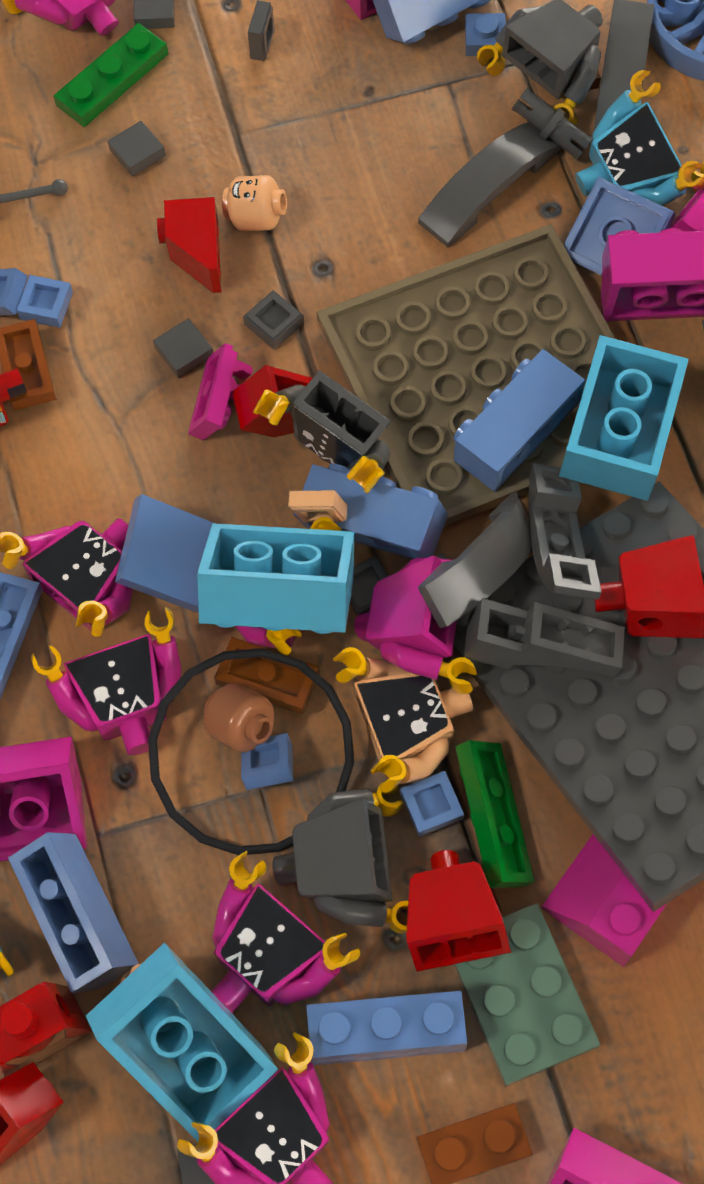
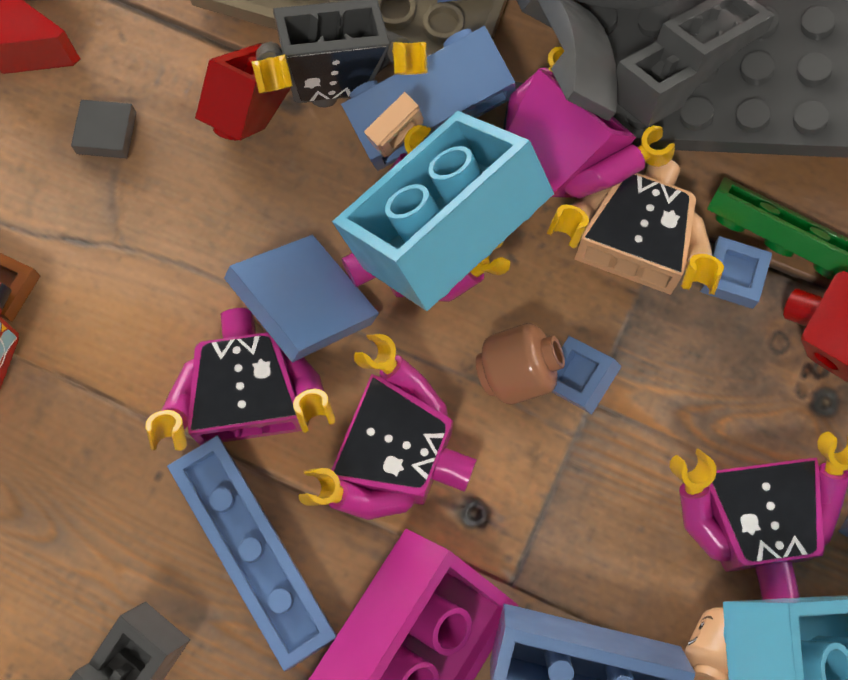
camera: 50 degrees left, 5 degrees up
(175, 690) = (466, 438): black piece -> none
(216, 387) = (178, 133): dark pink plate -> none
(273, 319) = (153, 37): dark grey tile -> none
(276, 681) = (493, 307): dark orange plate -> none
(344, 859) = (735, 381): dark grey torso -> none

